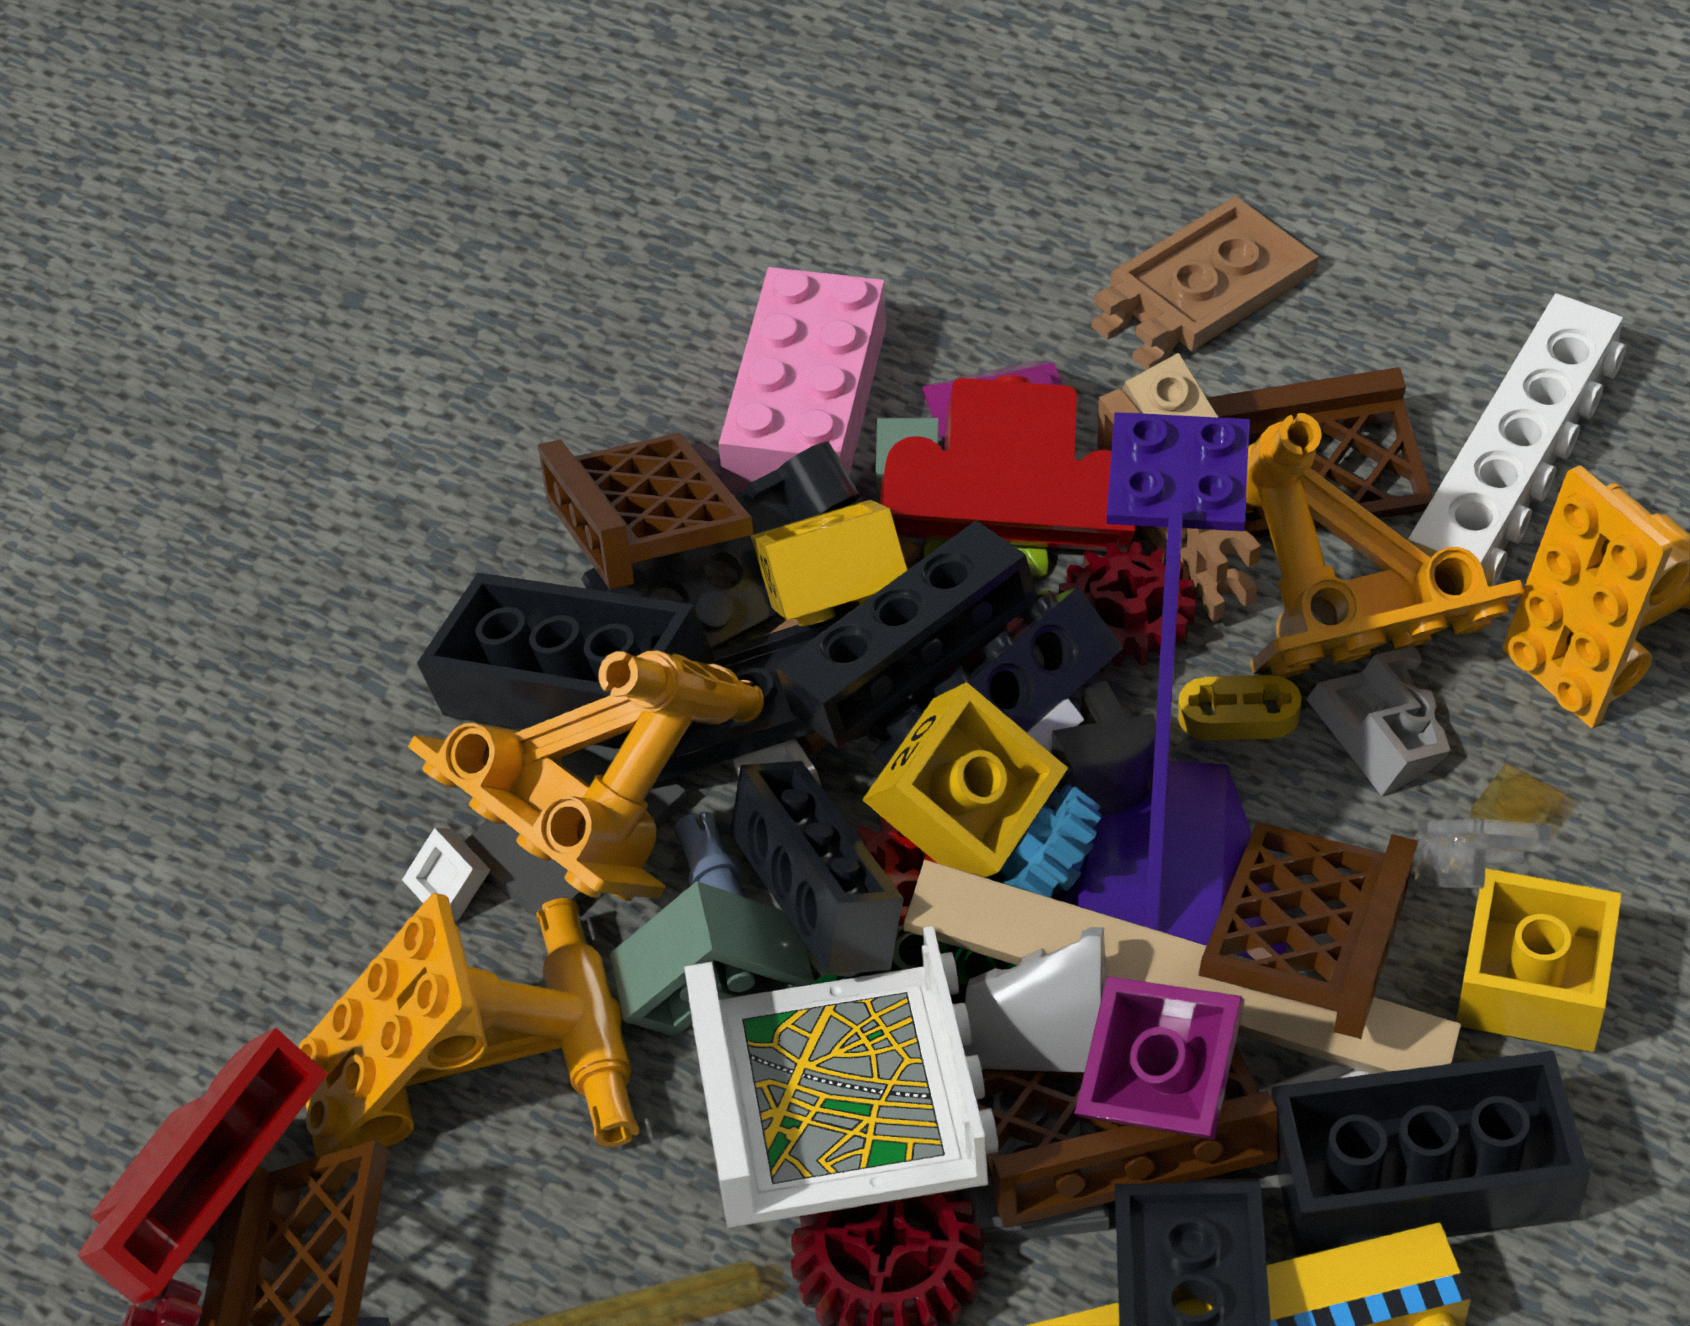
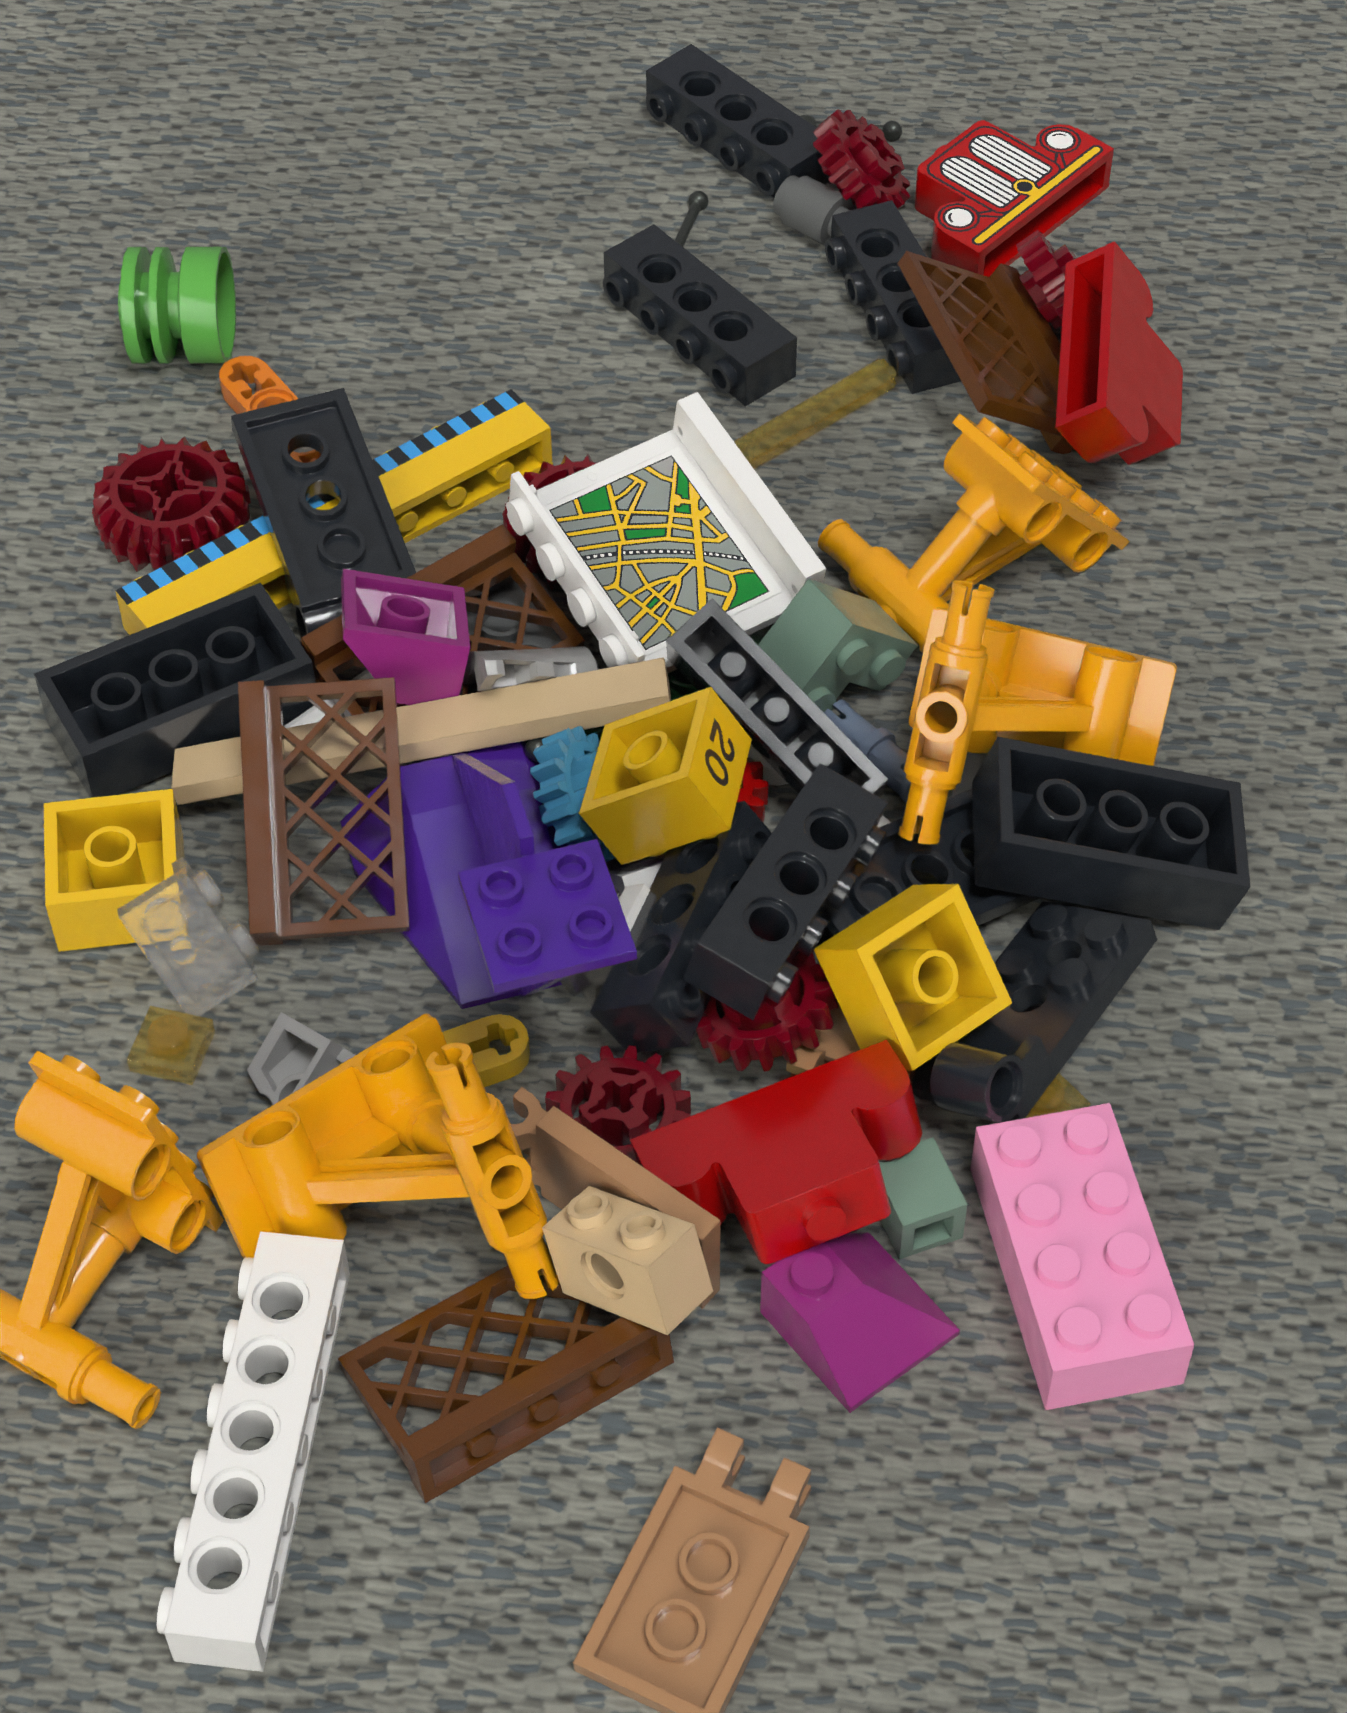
camera: 155 degrees right, 0 degrees up
(650, 478) = (1188, 976): reddish brown fence -> none

